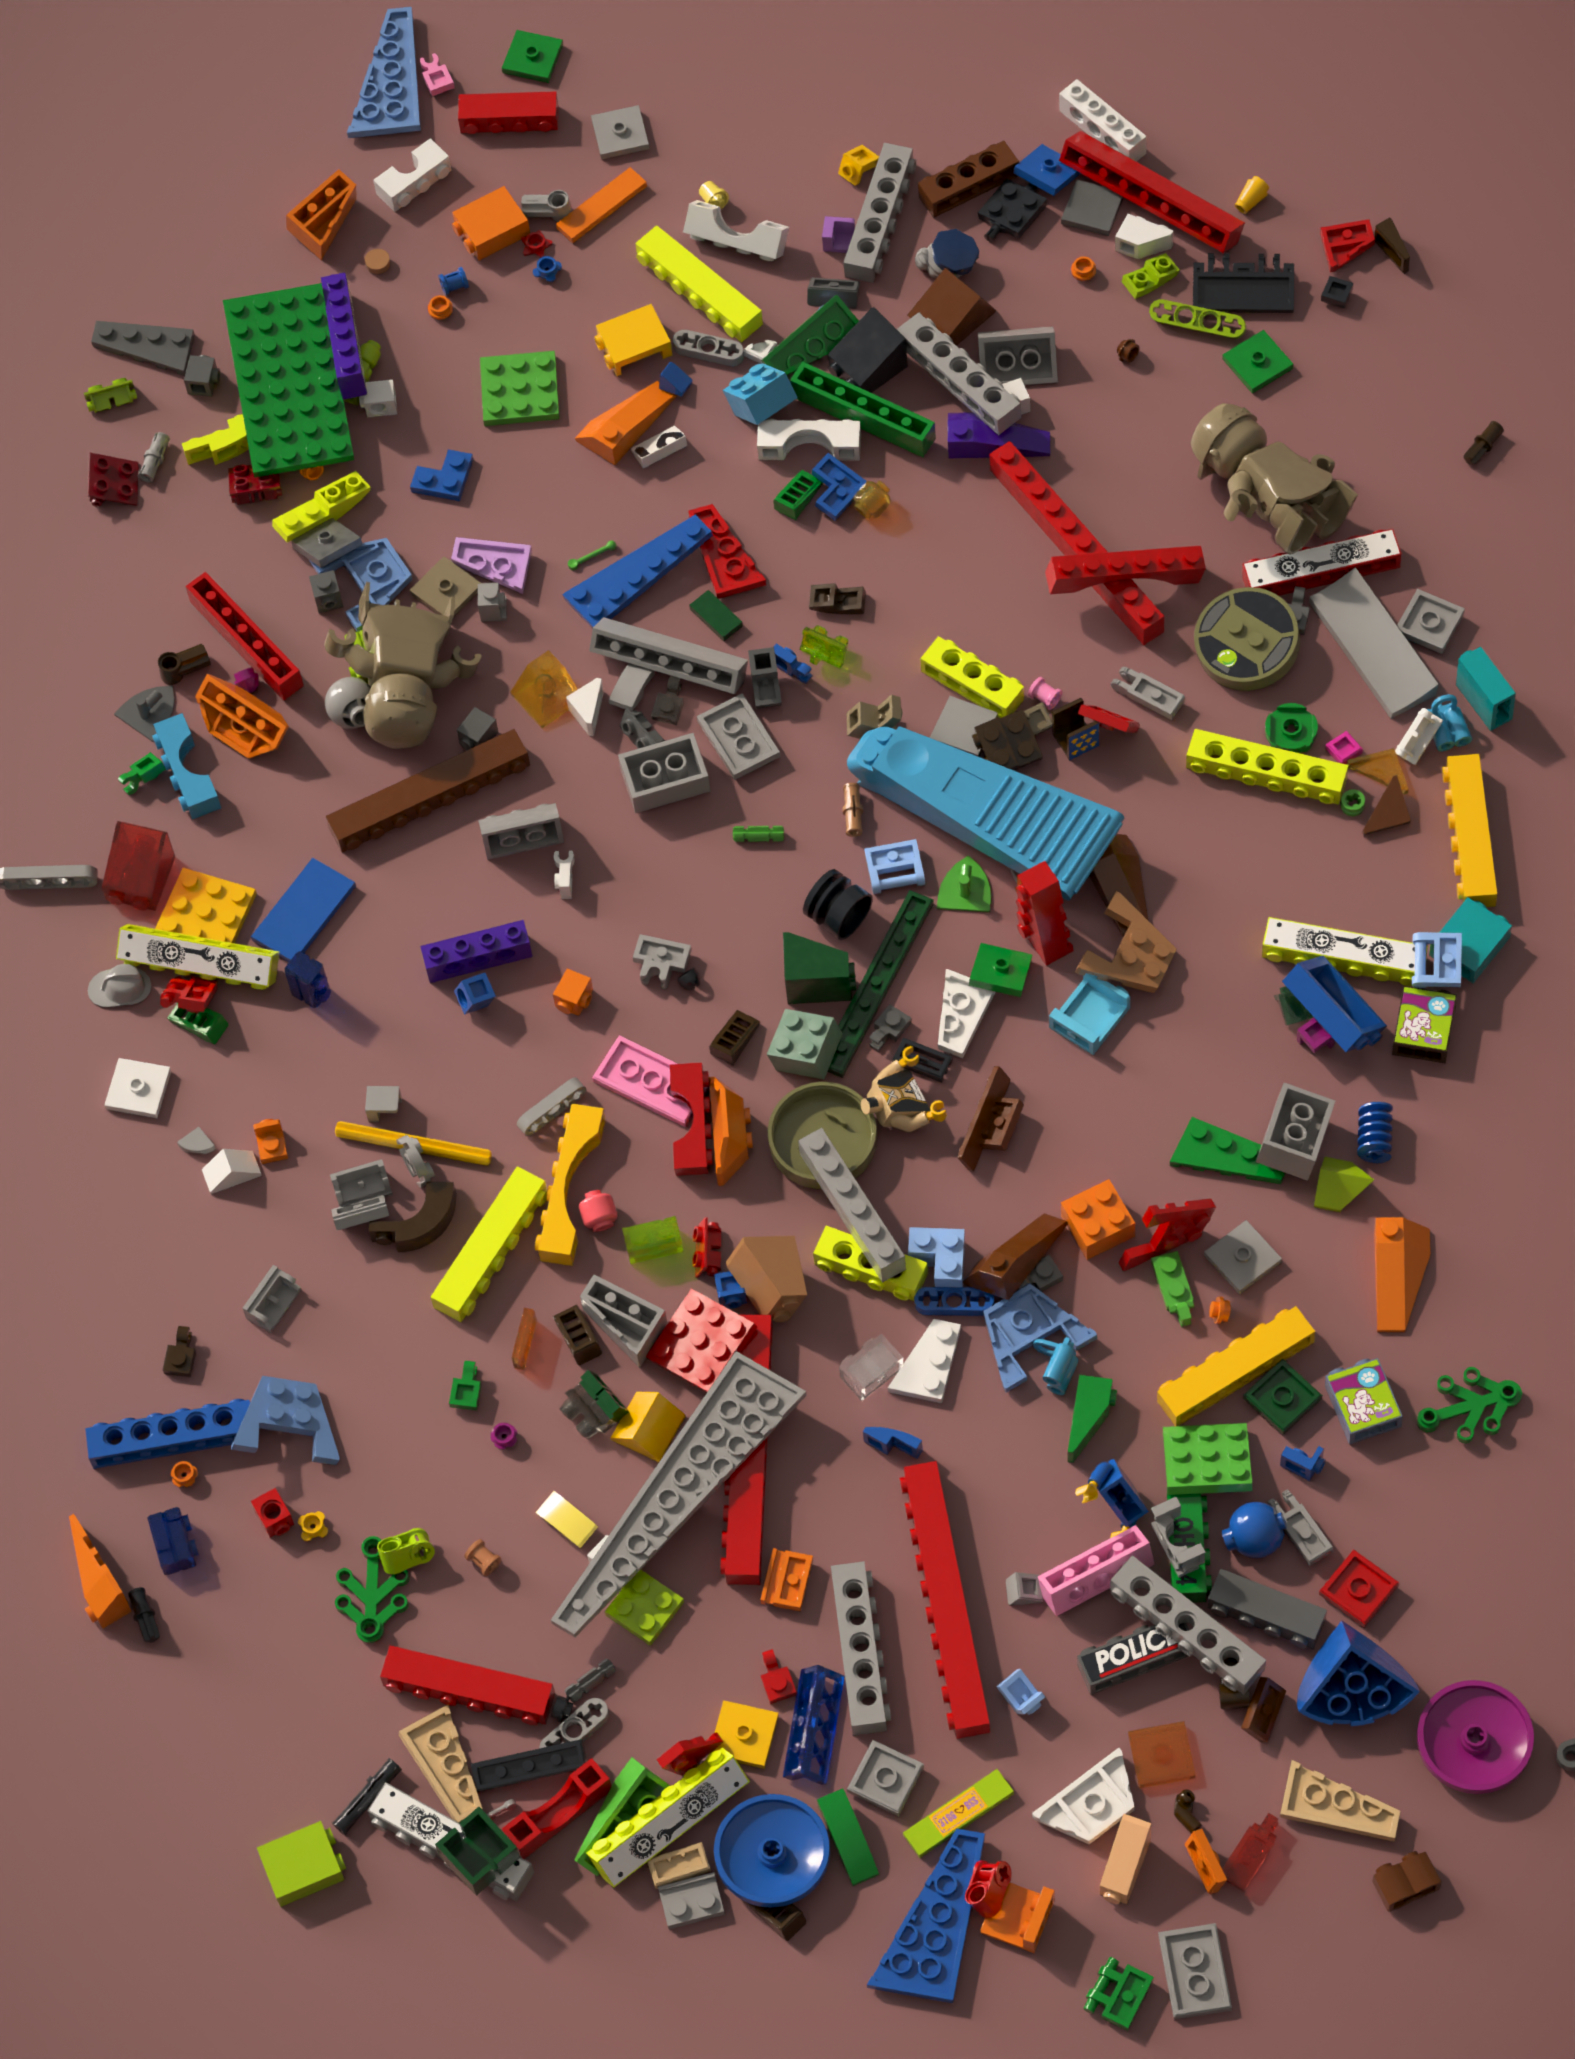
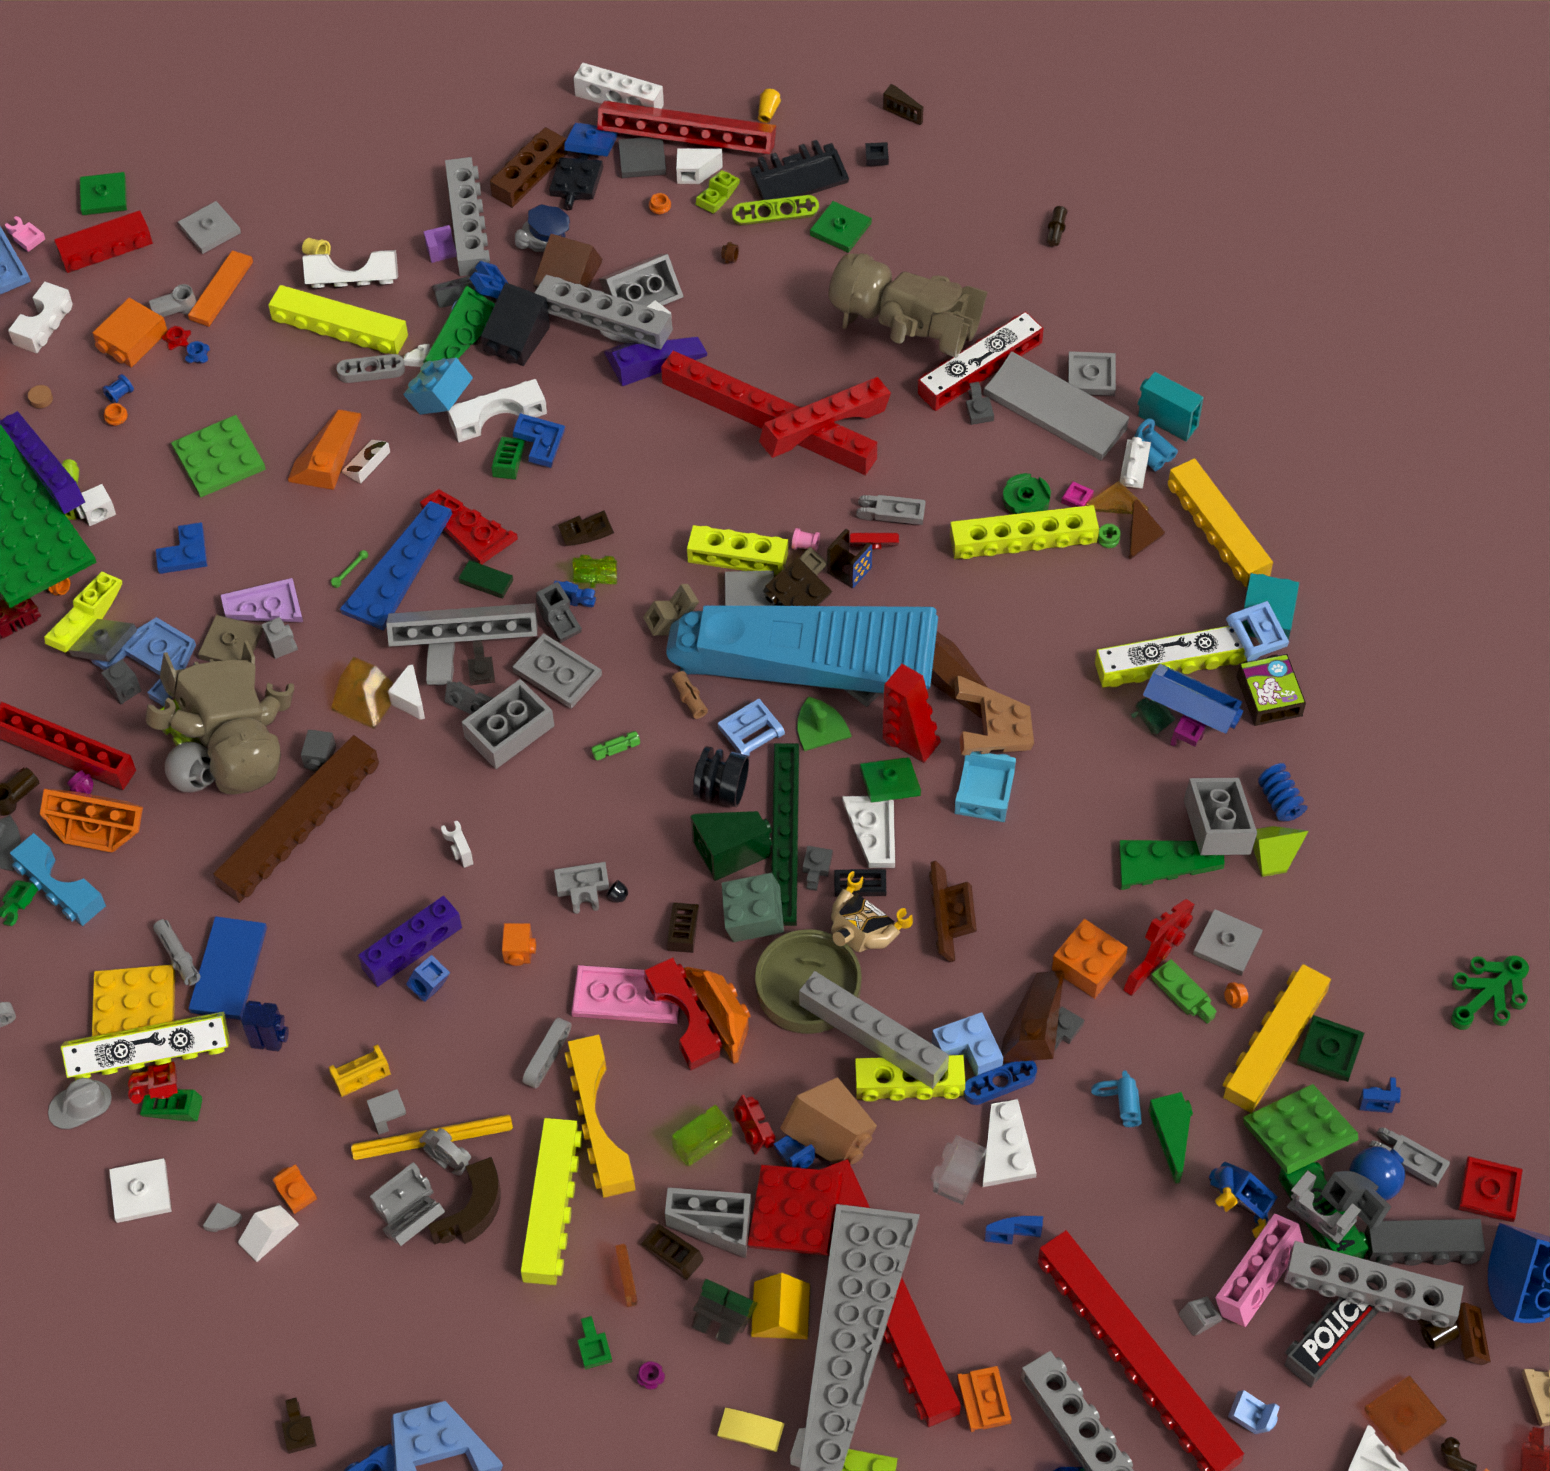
camera: 30 degrees left, 5 degrees down
(137, 866) = (51, 985): clear red slope -> none
(263, 887) = (180, 958): none -> light grey pin
(271, 1299) = (364, 1337): light grey hinge -> none
(376, 1057) = (360, 1072): none -> yellow hinge
(521, 831) = (401, 820): light grey slope -> none
(598, 1211) = (637, 1129): coral head -> none
(632, 338) = (301, 381): yellow panel -> none
(674, 380) = (354, 402): blue slope -> none
(856, 404) = (549, 369): green brick -> none
(857, 162) = (427, 185): yellow bracket -> none
(869, 295) = (488, 279): none -> blue plate
(872, 499) = (576, 438): clear yellow head -> none
(1022, 1320) = (1072, 1074): medium blue wing -> none
(1218, 1537) = (1350, 1188): none -> dark grey brick
(1247, 638) = (953, 437): piece -> none
(1346, 242) = (863, 115): red wing -> none
(1363, 1400) = (1400, 1022): brick -> none
(1400, 1263) = (1364, 900): orange wedge -> none

